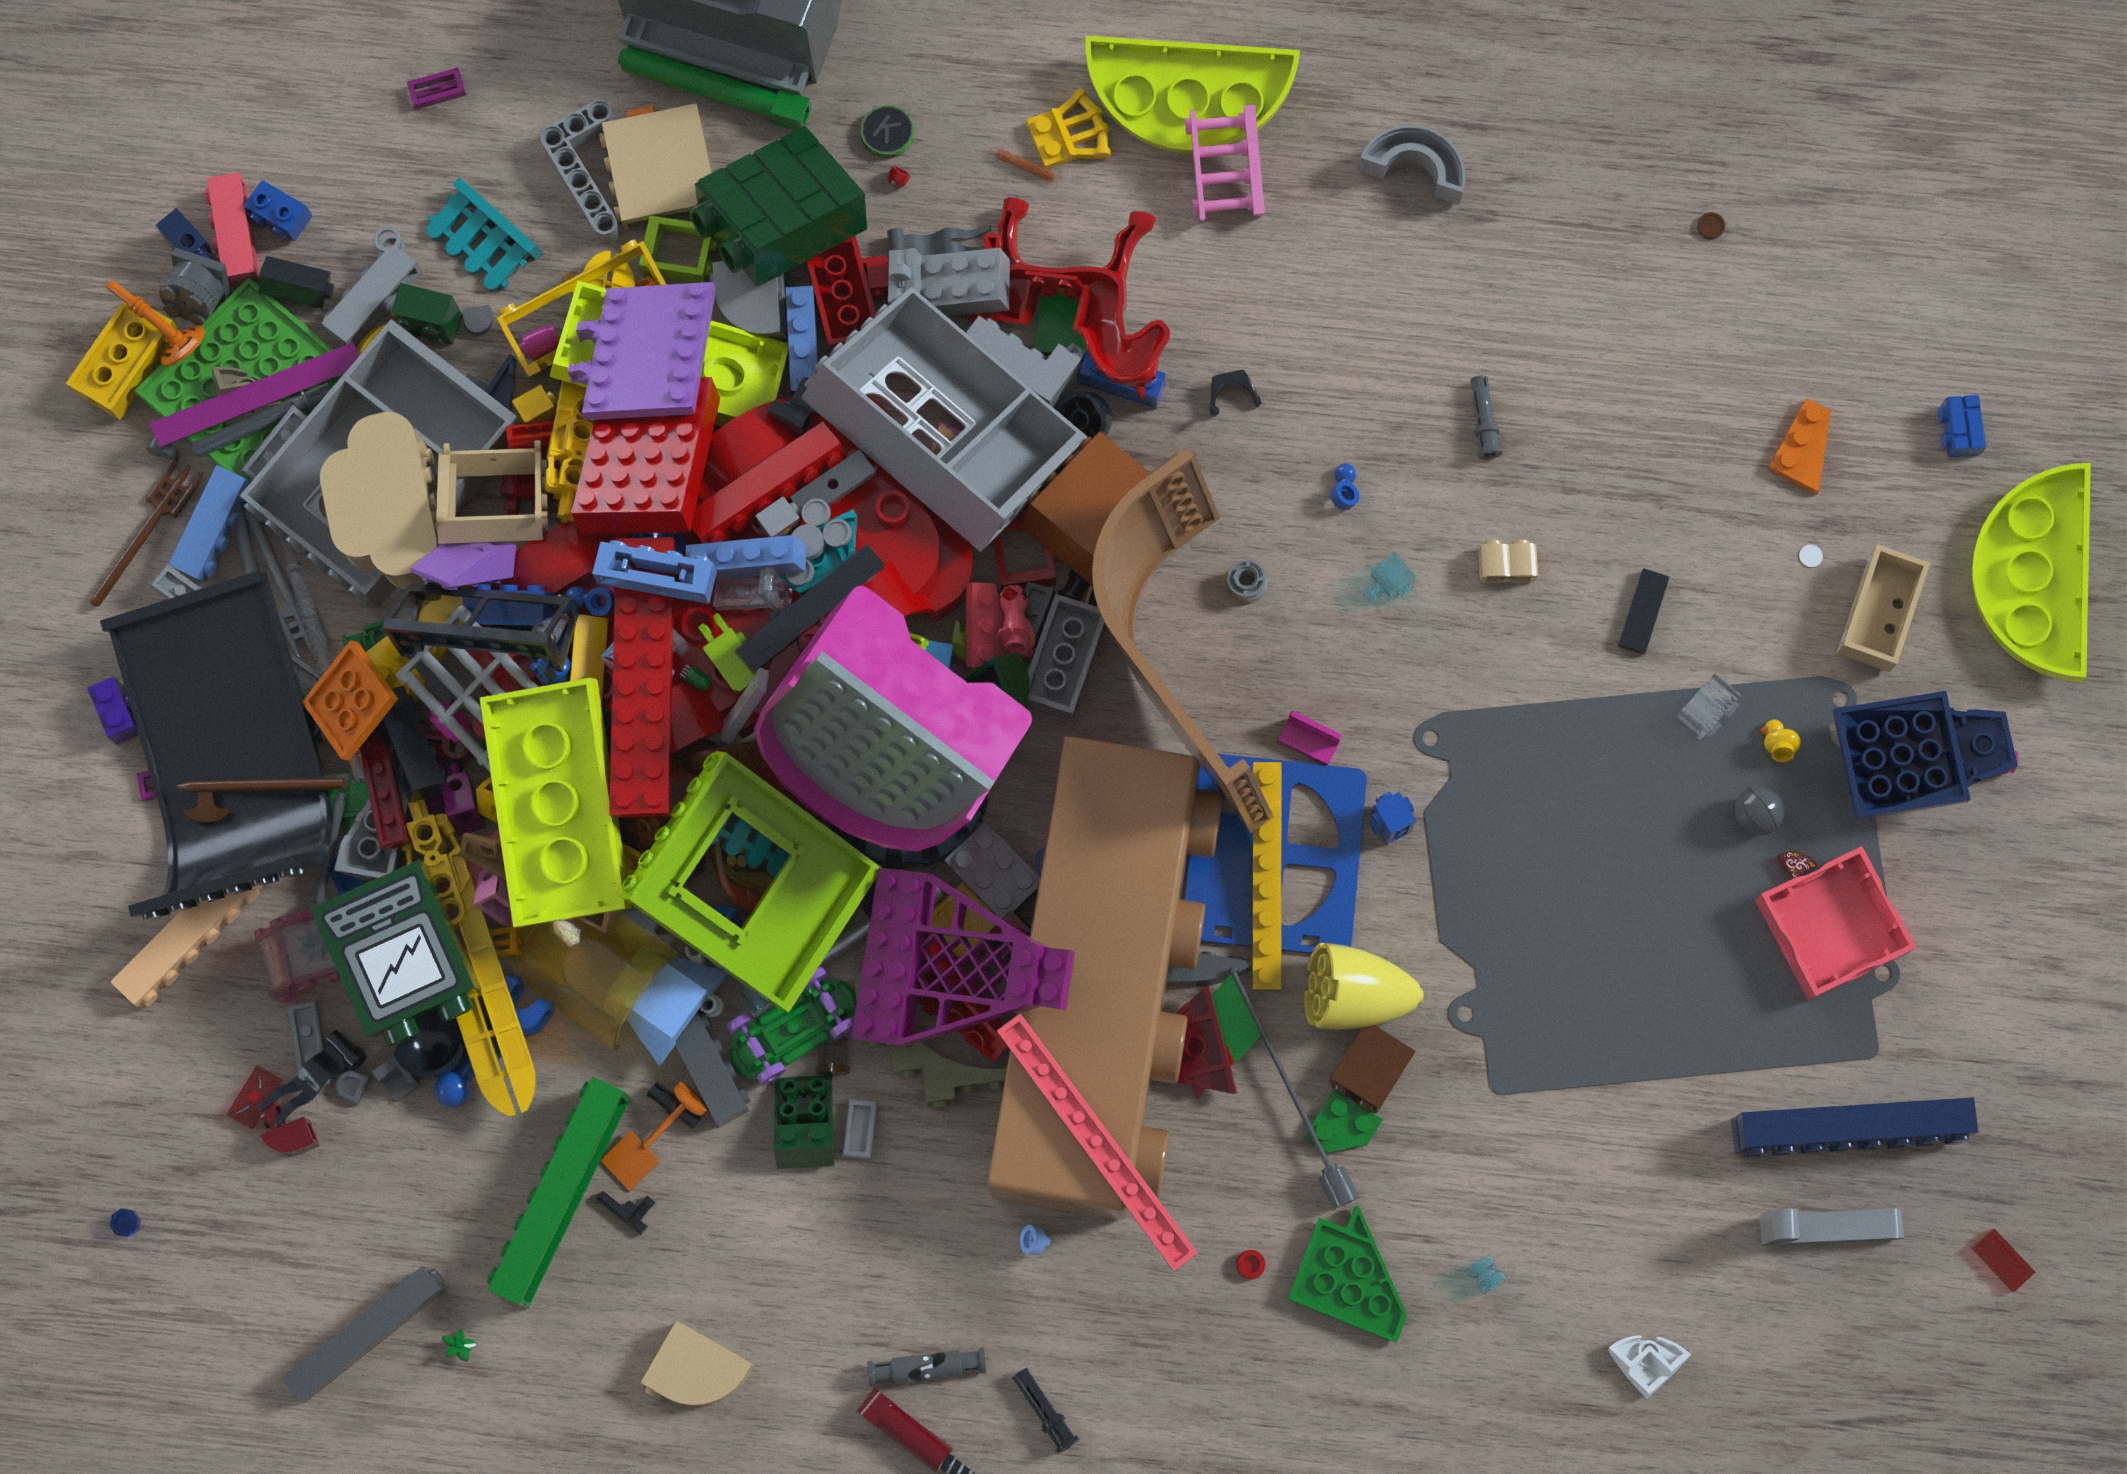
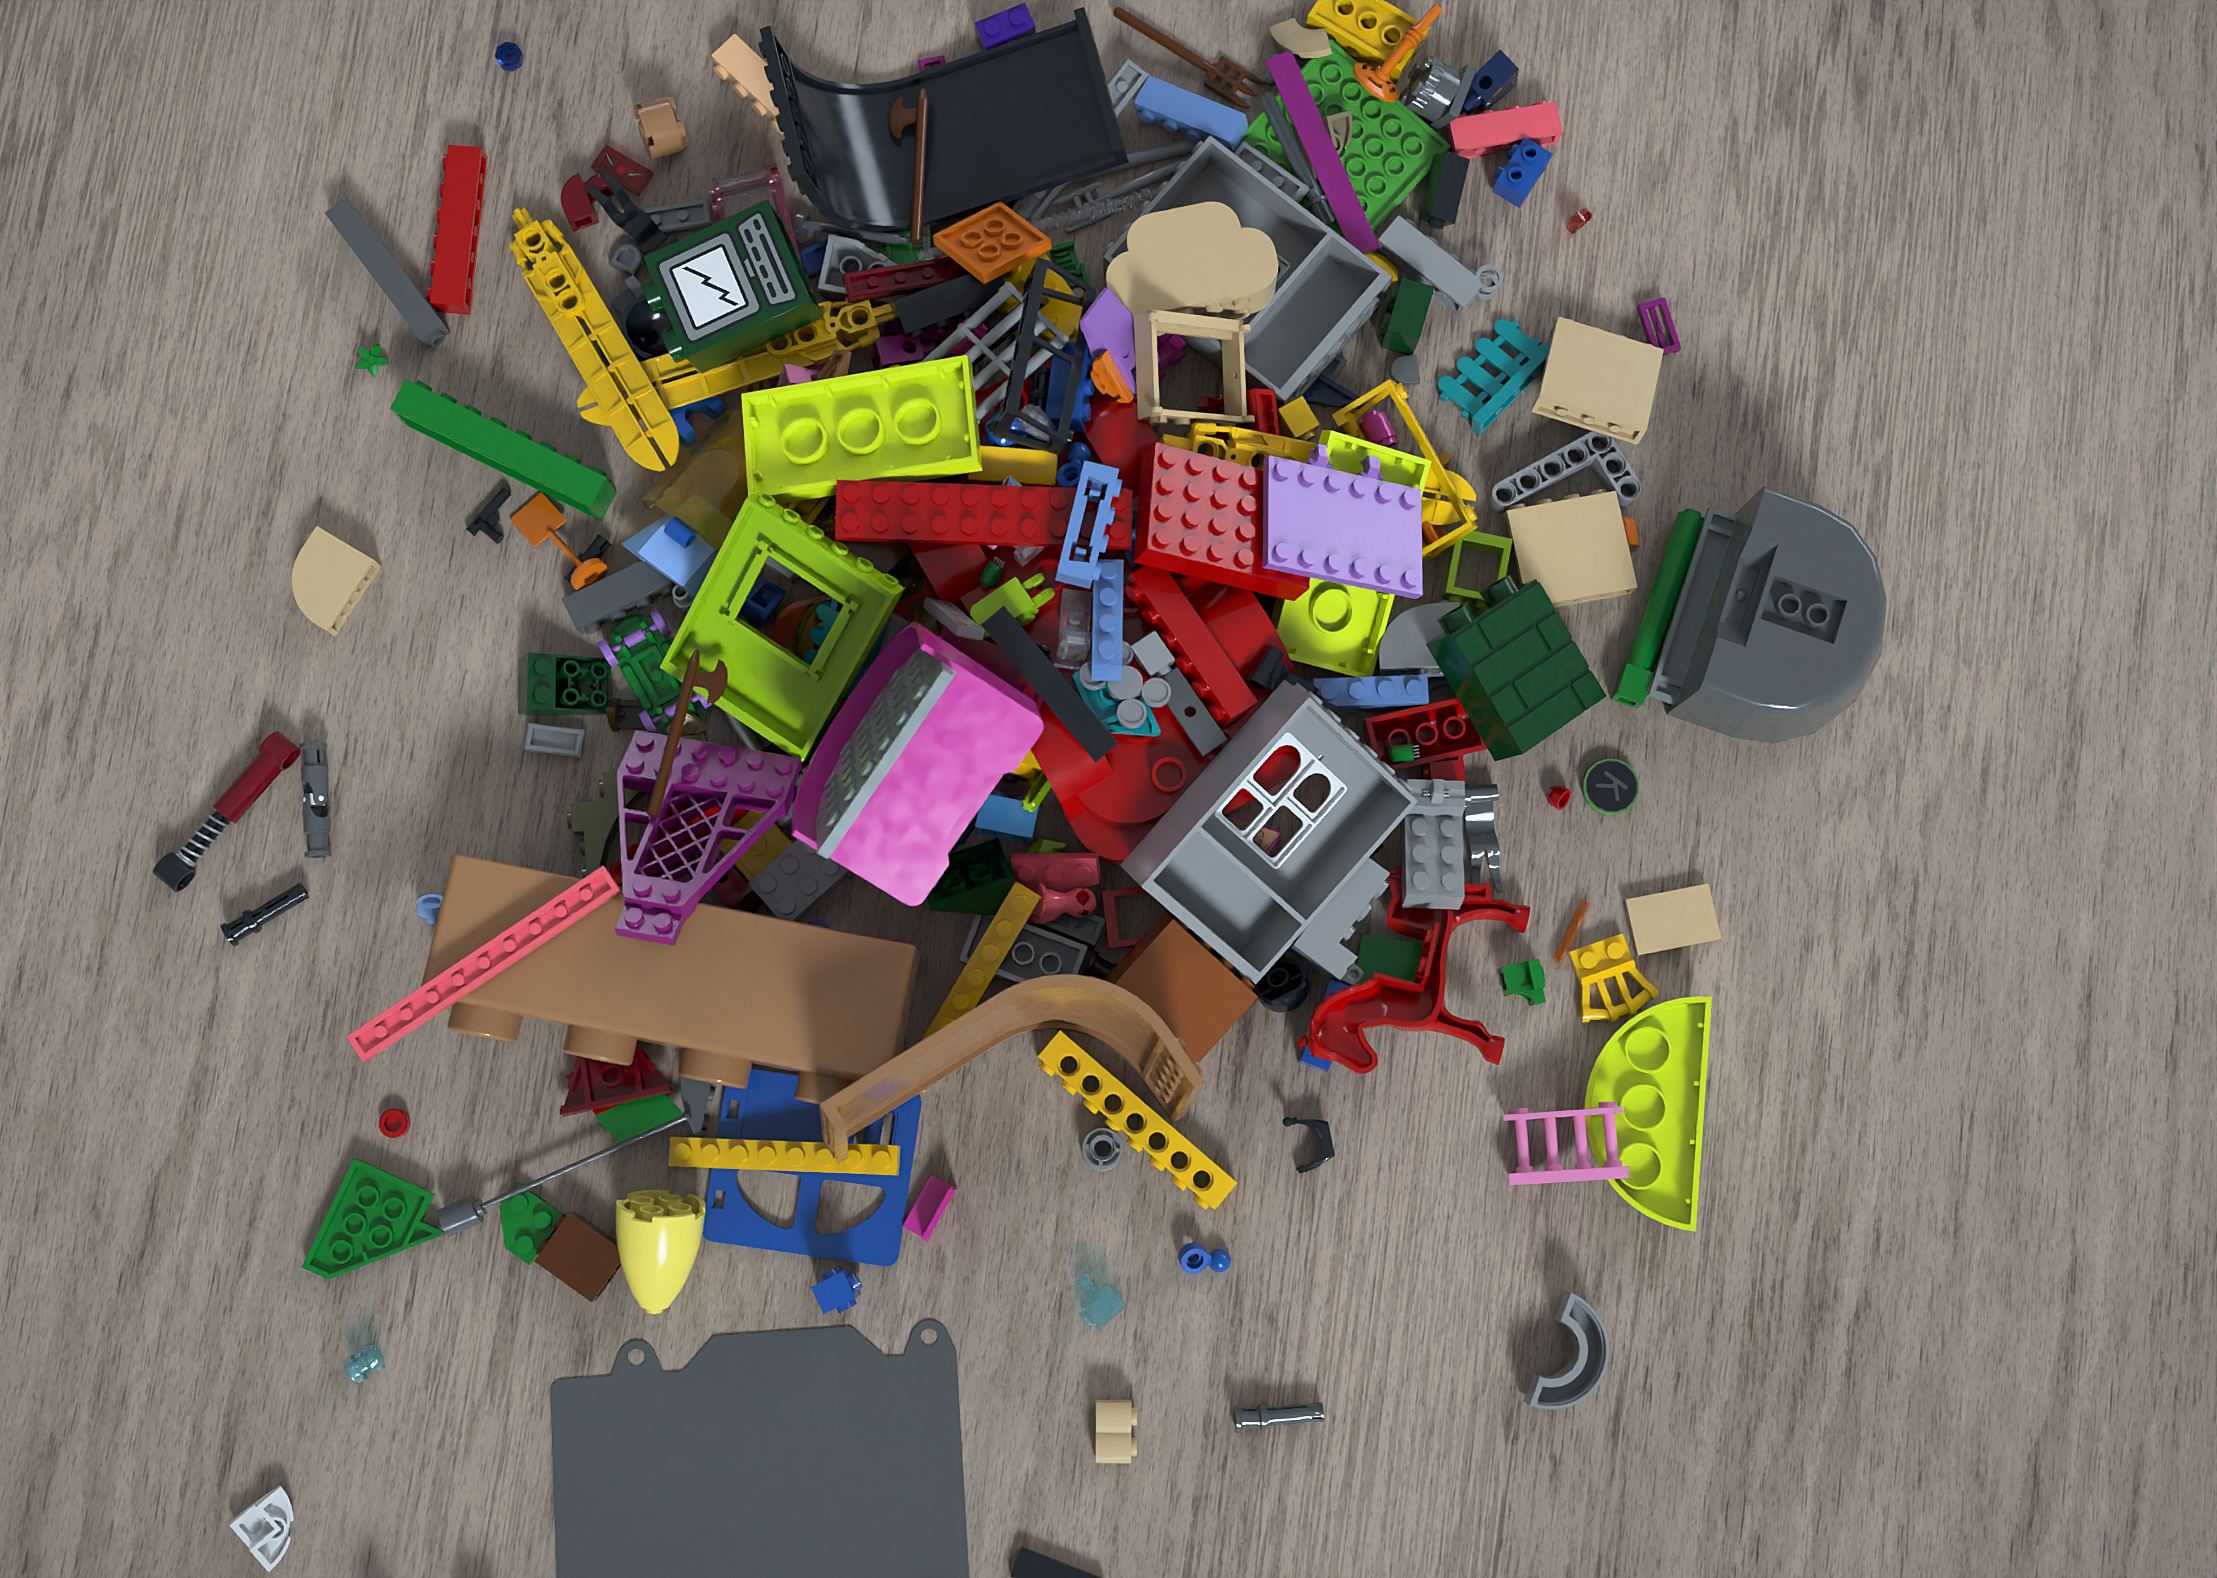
camera: 85 degrees right, 5 degrees up
(135, 420) = (1301, 41): none -> tan tile
(211, 1054) = (659, 127): none -> medium nougat brick
(317, 1262) = (458, 229): none -> red brick
(327, 160) = (1579, 220): none -> clear red tile
(363, 1140) = (564, 267): none -> yellow piece
(492, 136) = (1598, 380): none -> tan panel
(501, 567) = (1109, 379): none -> orange tile
(651, 995) = (680, 532): none -> blue hinge
(808, 947) = (715, 685): none -> reddish brown piece
(843, 993) = (691, 725): none -> tan tile
(861, 309) = (1403, 753): none -> green piece
(1012, 77) = (1672, 919): none -> tan tile
(1073, 202) = (1524, 980): none -> green brick
(1089, 695) = (987, 957): none -> yellow plate
(1273, 473) = (1219, 1182): none -> yellow brick

